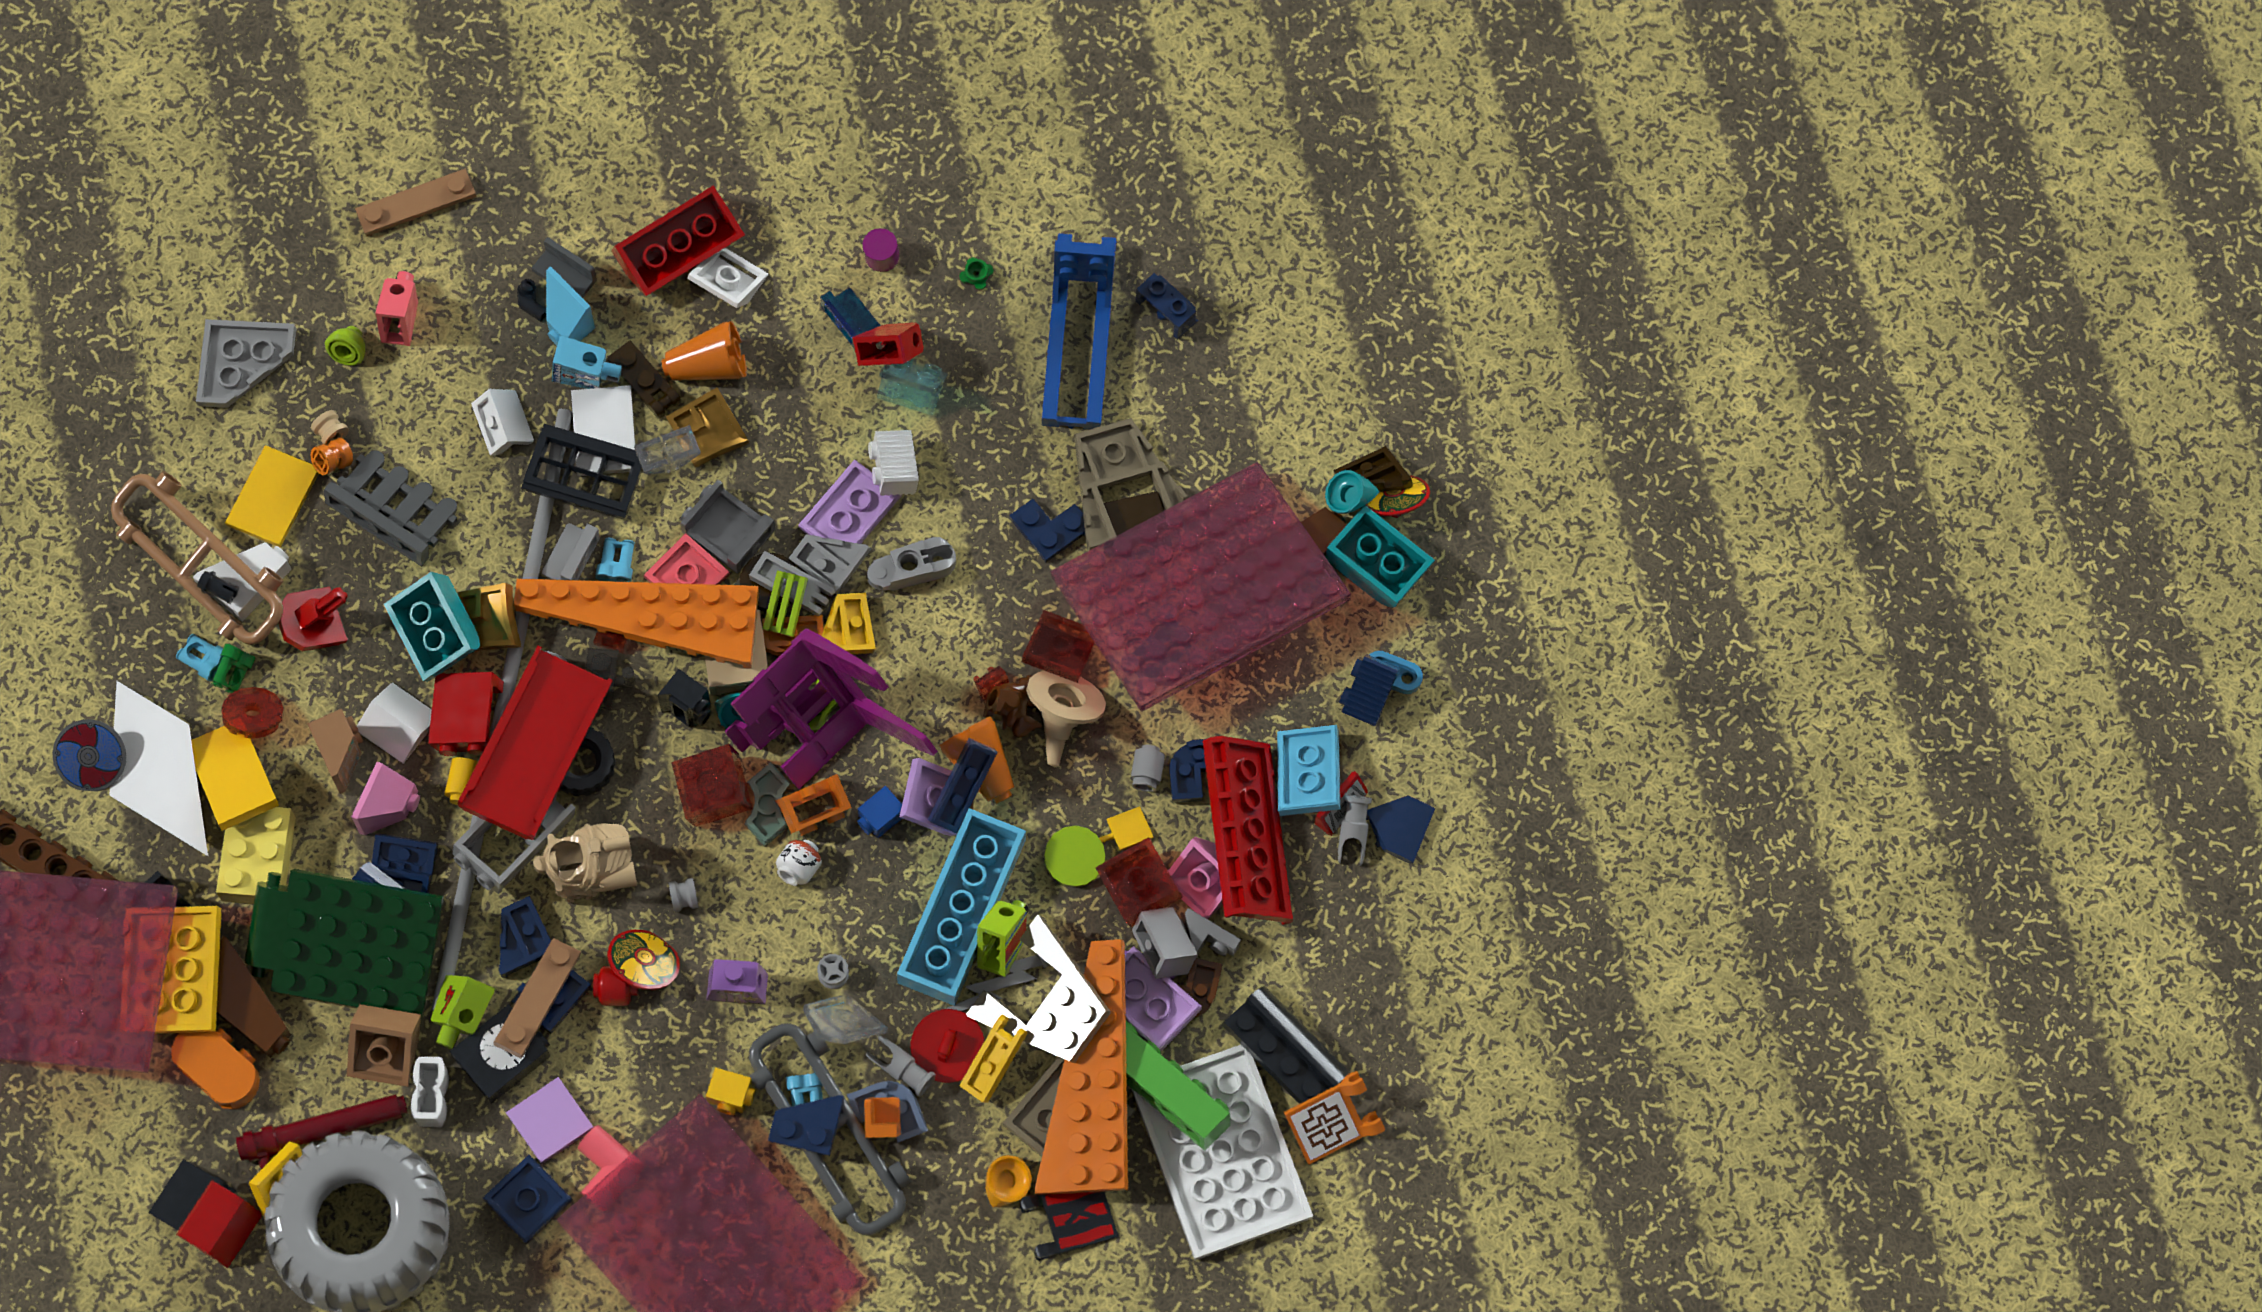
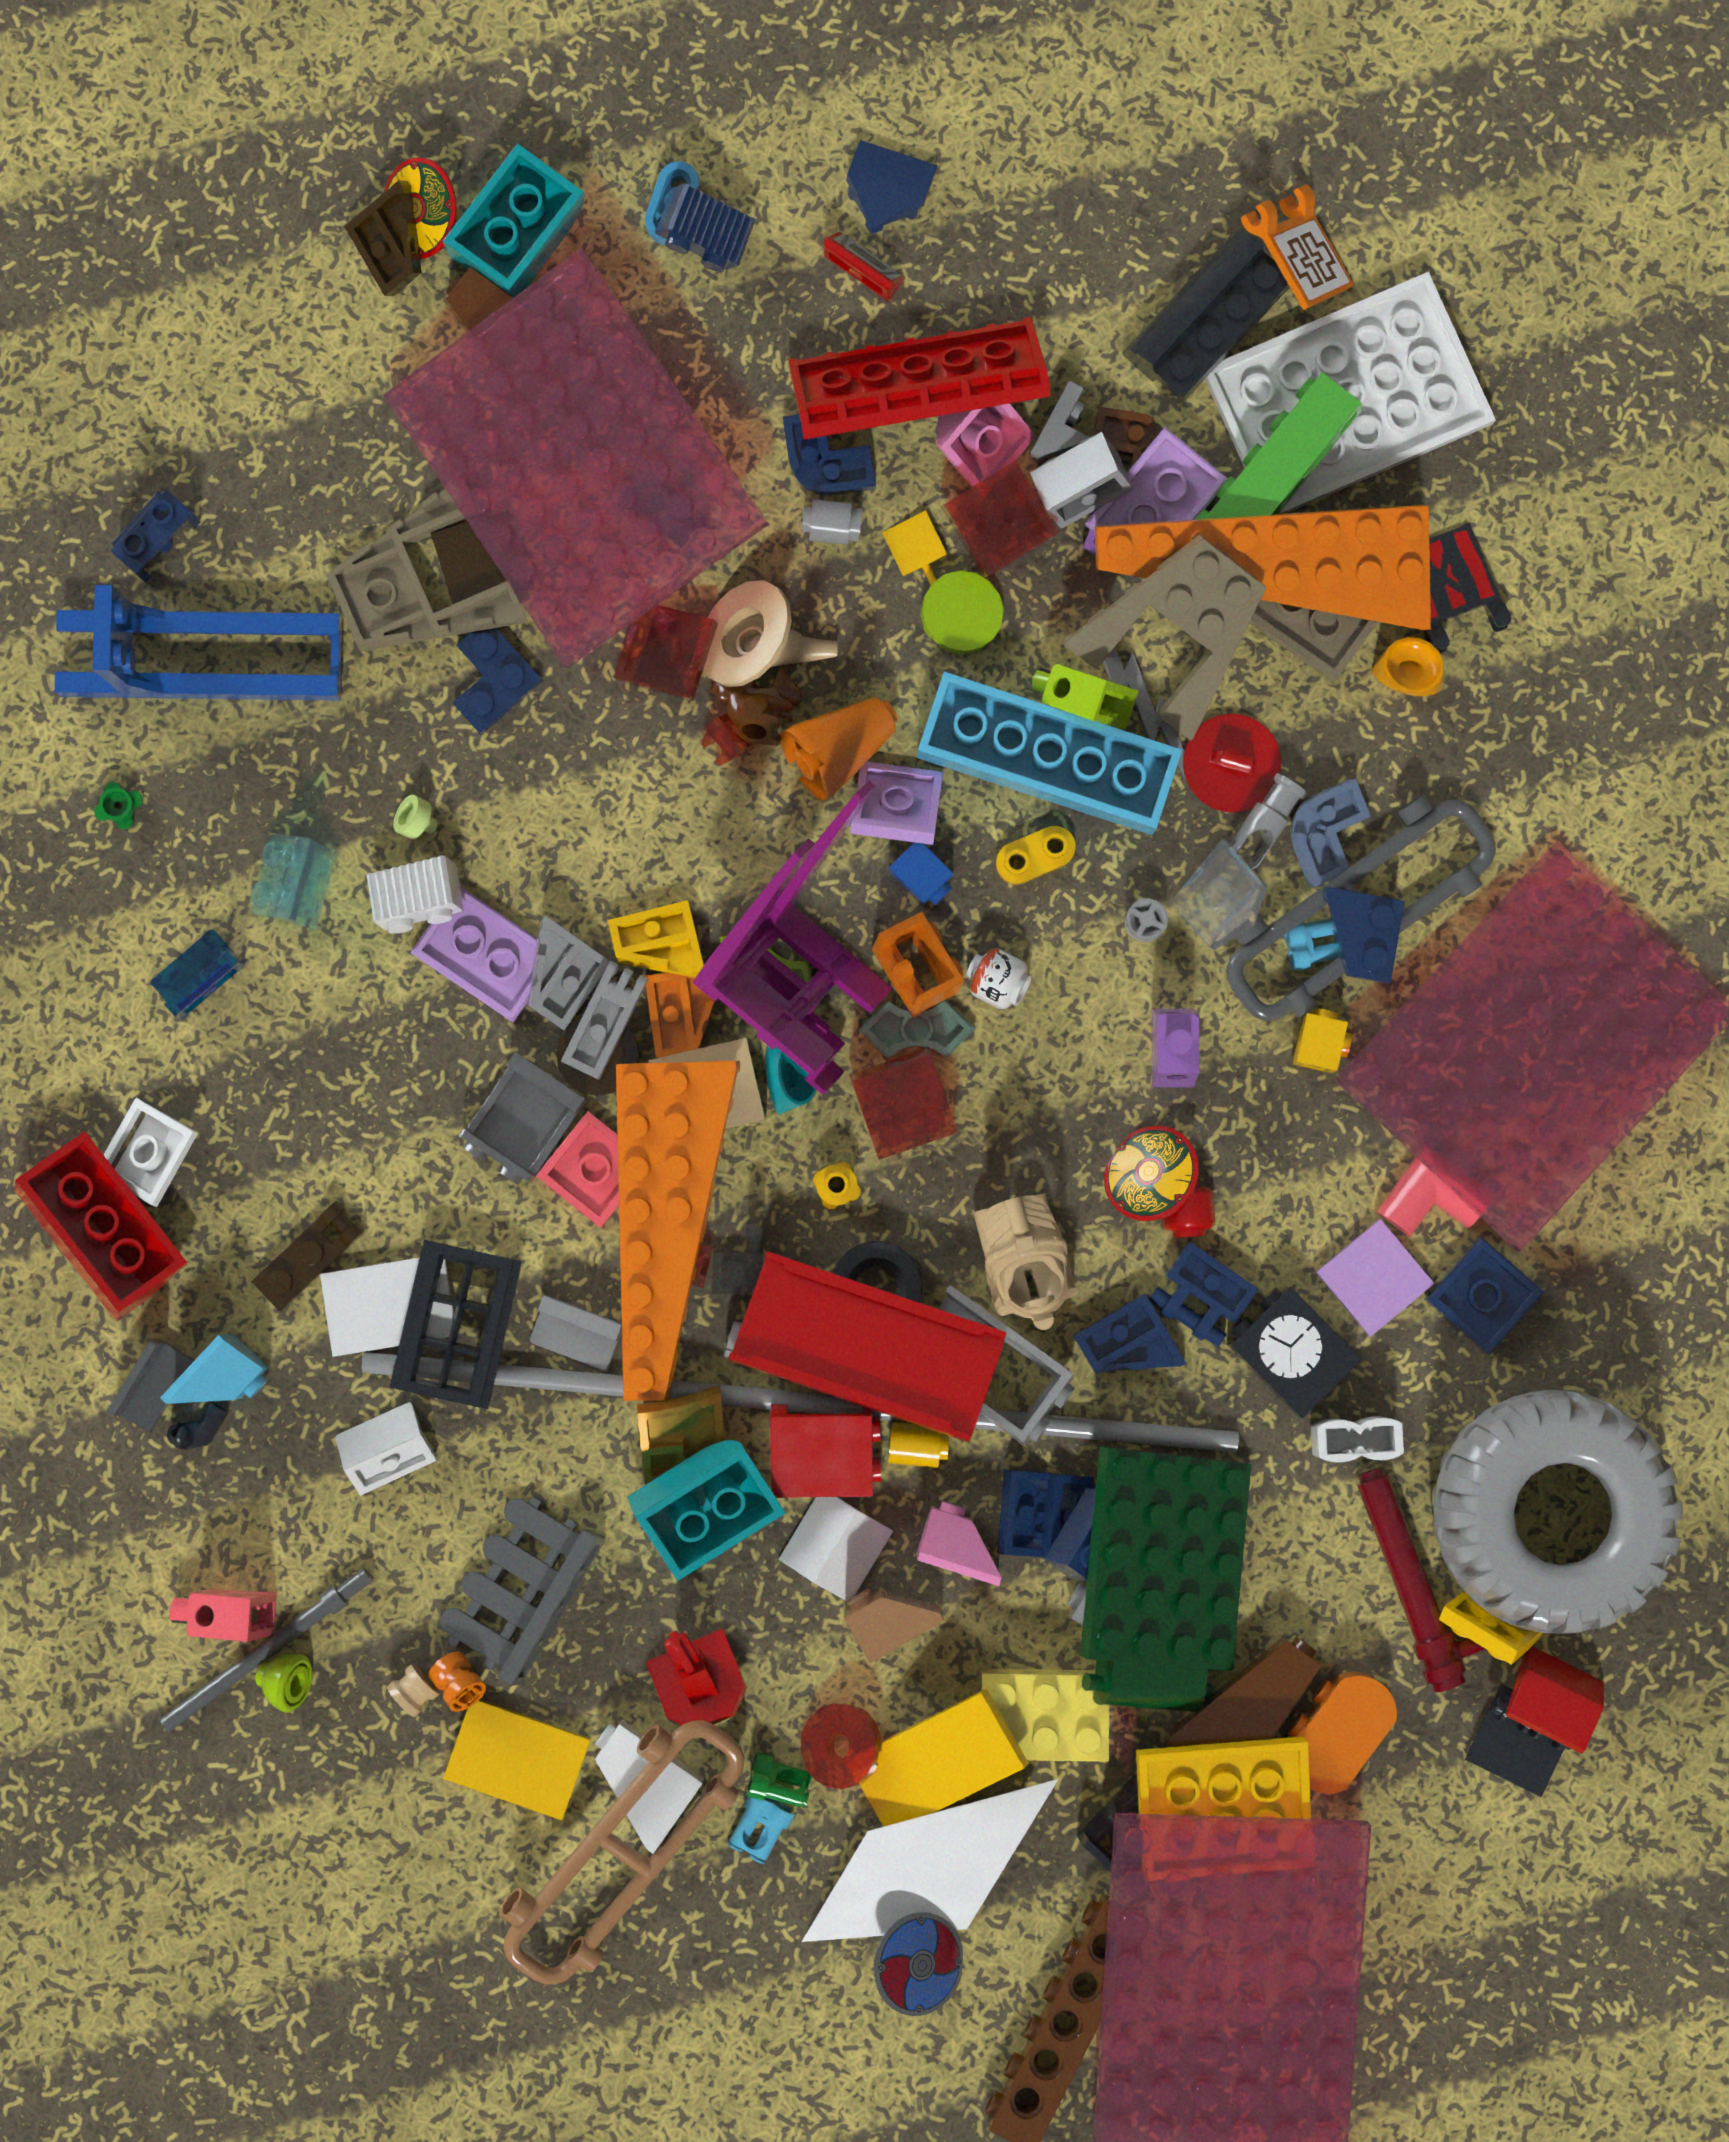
camera: 90 degrees left, 15 degrees up
(218, 587) = (670, 1816): black pin -> none
(240, 357) = (312, 1831): light grey plate -> none
(383, 1045) = (1292, 1510): medium nougat slope -> none
(398, 379) = (331, 1601): none -> dark grey bar
(415, 202) = (56, 1609): medium nougat plate -> none
(460, 1007) = (1240, 1410): lime torso -> none
(537, 998) = (1222, 1308): medium nougat plate -> none
(582, 364) = (299, 1358): medium azure torso -> none
(615, 571) = (597, 1268): medium azure piece -> none
(661, 745) = (841, 1170): none -> yellow brick
(668, 451) = (421, 1209): clear slope -> none
(683, 895) = (1055, 1129): light grey wheel -> none
(685, 699) = (786, 1146): black window -> none
(707, 356) = (273, 1168): orange cone -> none
(711, 424) = (378, 1160): pearl gold plate -> none
(768, 624) = (672, 1031): lime tile -> none
(880, 250) = (93, 939): magenta piece -> none
(882, 1117) = (1349, 834): orange panel -> none
(888, 573) = (574, 891): light grey piece -> none
(889, 896) = (1035, 854): none -> yellow plate
(900, 345) = (242, 913): red torso -> none
(951, 467) = (414, 817): none -> yellowish green tile
(962, 785) = (886, 759): dark blue tile -> none
(992, 1061) = (1258, 698): yellow hinge -> none
(1308, 770) = (823, 305): medium azure tile -> none
(1349, 492) = (426, 264): teal piece -> none
(1355, 823) = (893, 241): light grey piece -> none

